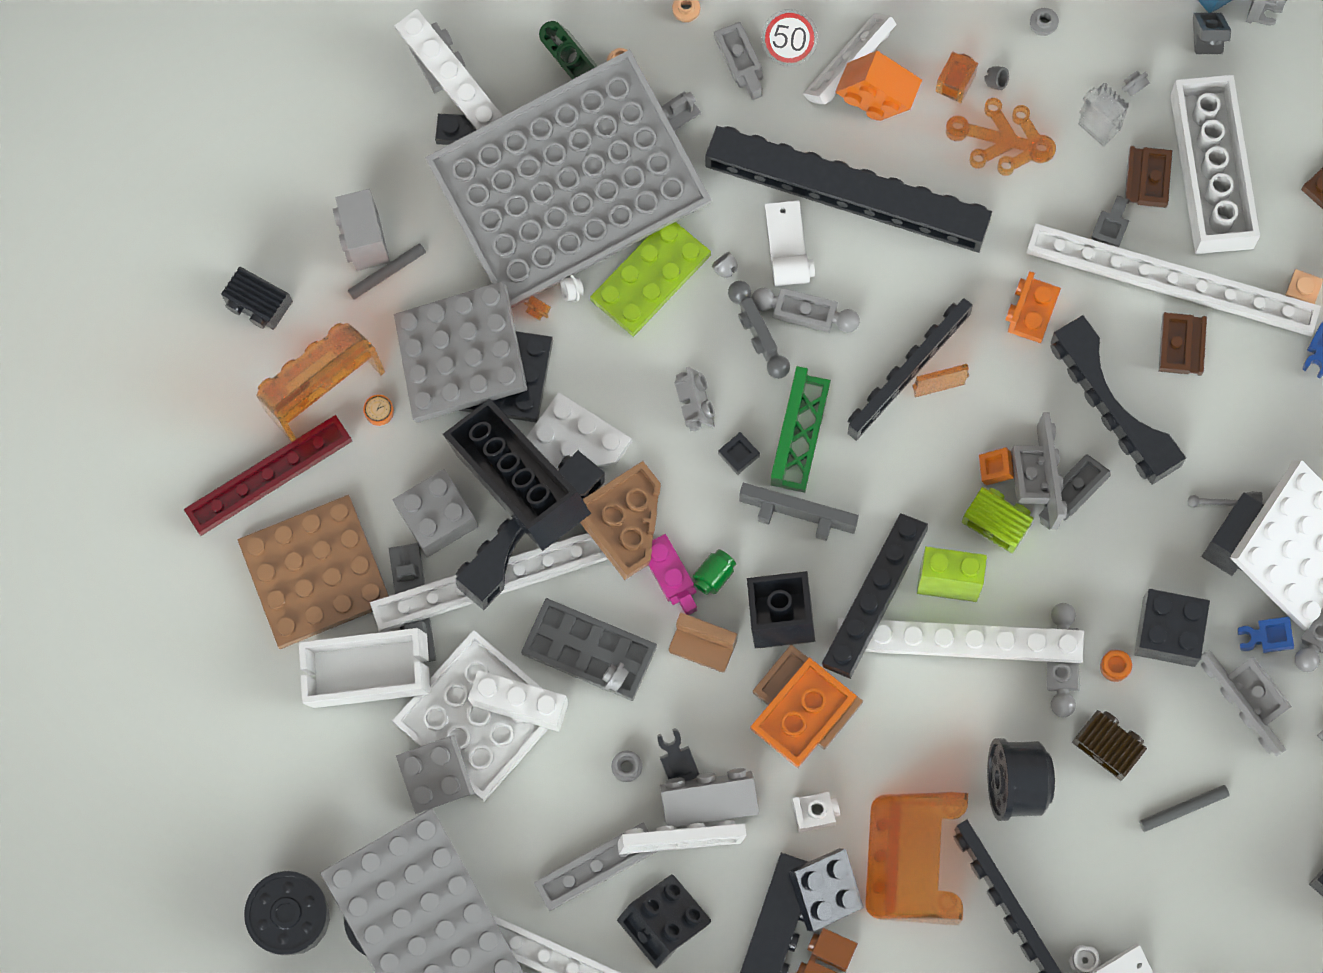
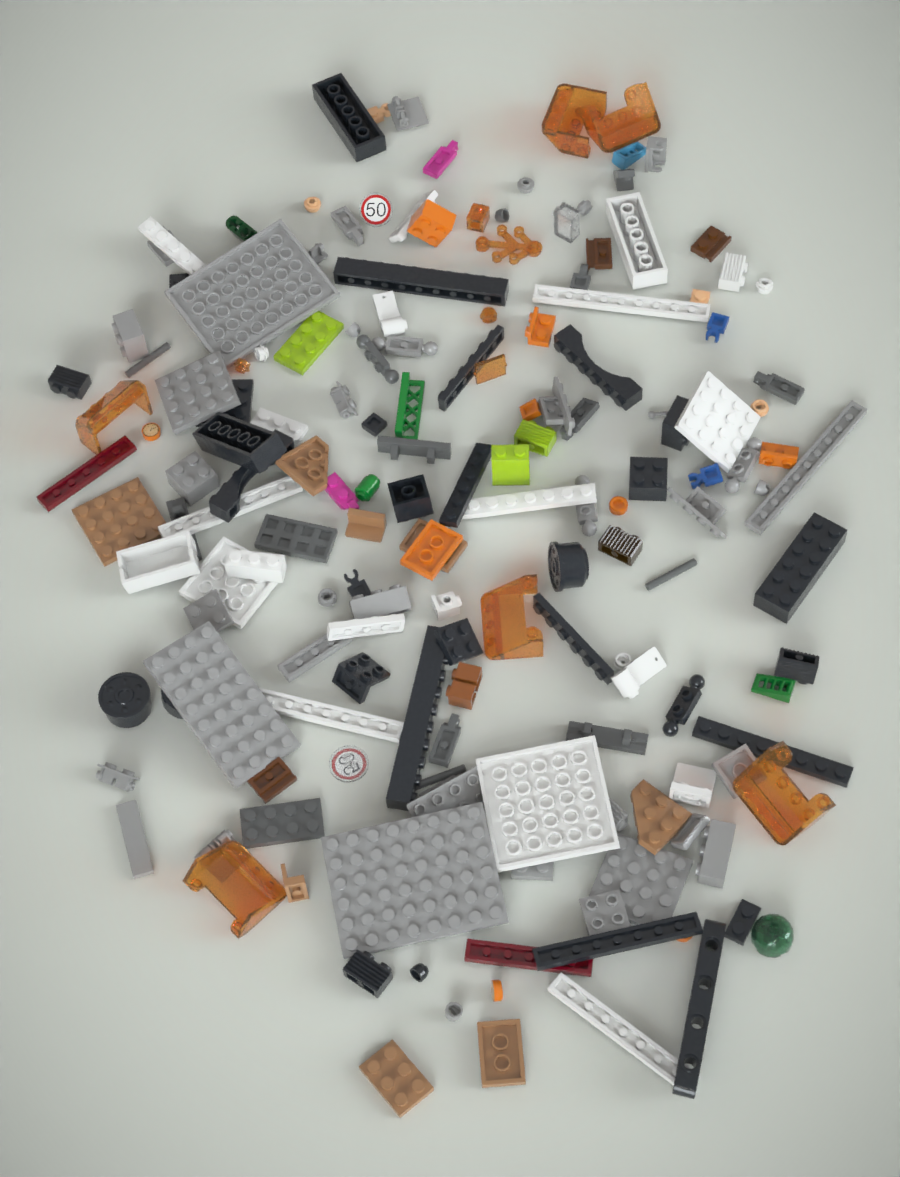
camera: 10 degrees left, 15 degrees down
(614, 676) = (313, 546): light grey plate -> none
(950, 263) = (488, 315): none -> clear orange plate
(1182, 344) = (632, 334): reddish brown plate -> none

